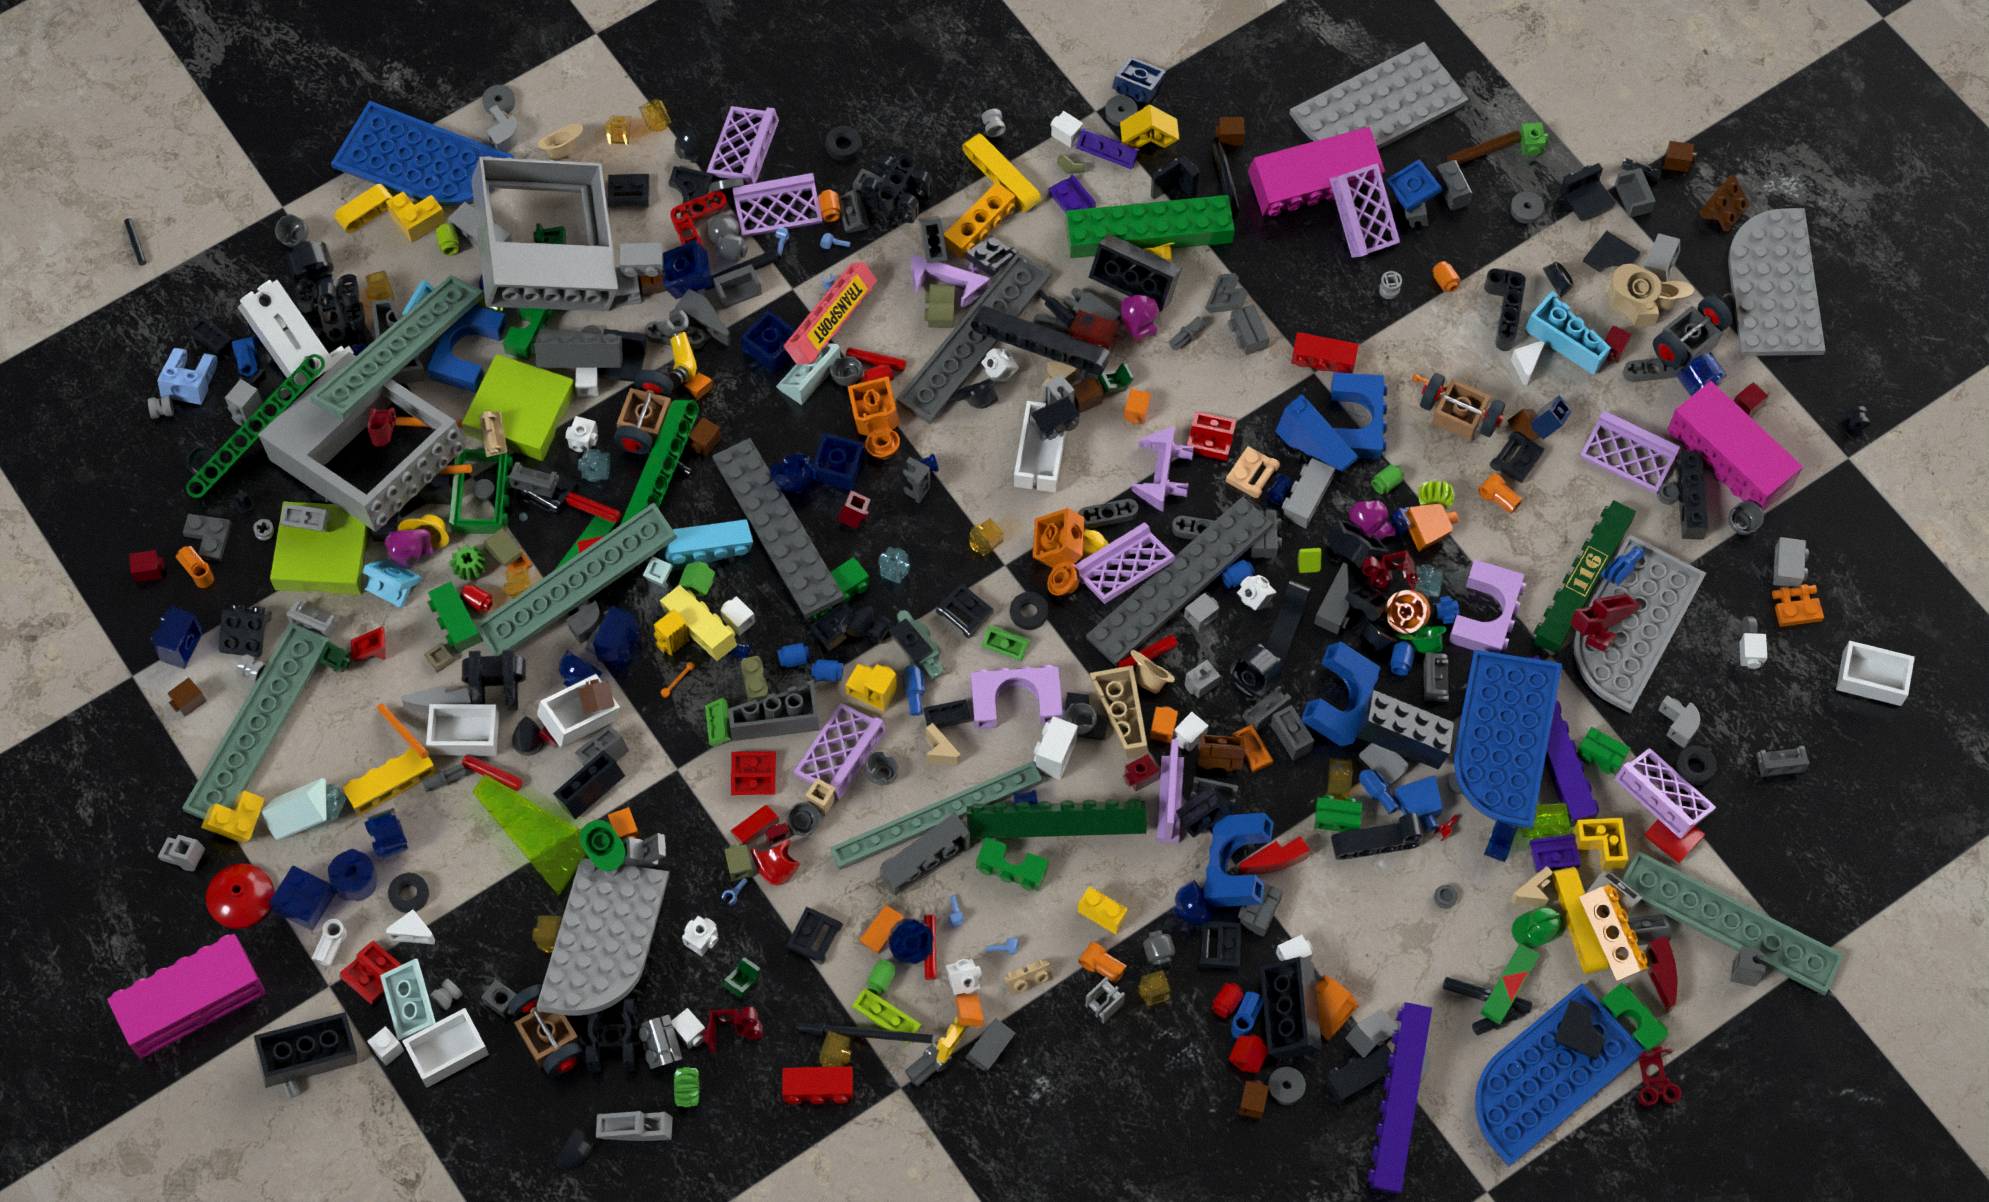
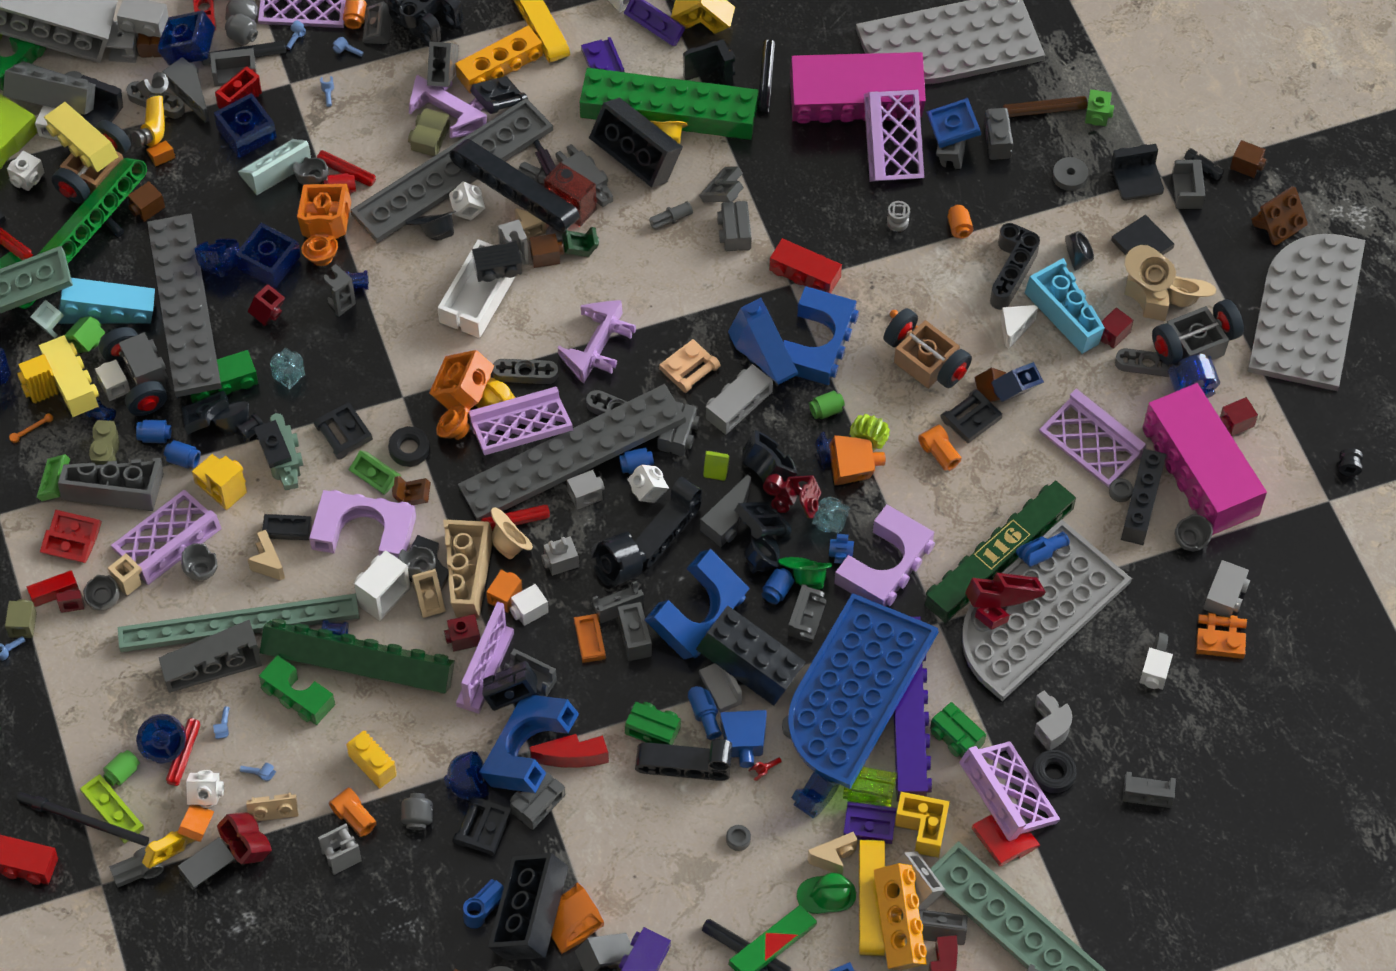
camera: 15 degrees right, 5 degrees down
(594, 465) = (26, 202): clear light blue brick -> none
(628, 391) = (80, 137): none -> light yellow brick
(752, 307) = (239, 86): none -> red brick
(762, 597) = (142, 365): none -> brick
(775, 864) = (58, 628): red piece -> none
(808, 931) = (64, 704): black plate -> none
(830, 313) = (313, 111): coral brick -> none
(835, 1050) = (46, 828): clear yellow brick -> none
(877, 933) = (129, 726): orange tile -> none
(913, 688) = (262, 493): blue arm -> none
(985, 537) = (391, 364): clear yellow brick -> none
(1019, 1015) = (244, 838): none -> dark red brick
(1048, 653) = (411, 492): none -> reddish brown bracket
(1069, 166) = (610, 29): olive arm -> none
(1099, 744) = (428, 593): none -> tan slope
(1137, 406) = (592, 273): orange brick -> none
(1139, 315) = (625, 185): magenta piece -> none
(1154, 988) = (396, 850): clear yellow brick -> none
(1211, 435) = (660, 320): red slope -> none
(1220, 752) = (551, 632): reddish brown brick -> none
(1227, 999) = (469, 882): red brick -> none
(1230, 130) = (786, 31): reddish brown brick -> none
(1249, 1053) = (470, 942): red brick -> none
(1279, 488) = (710, 387): clear blue bush -> none
(1295, 948) = (560, 847): white brick -> none
(1339, 778) = (668, 690): clear yellow slope -> none
(1372, 519) = (794, 439): magenta piece -> none
(1407, 611) = (798, 539): orange cylinder -> none
(1663, 256) = (1196, 254): light grey hinge -> none
(1875, 673) = (1279, 723): white piece -> none

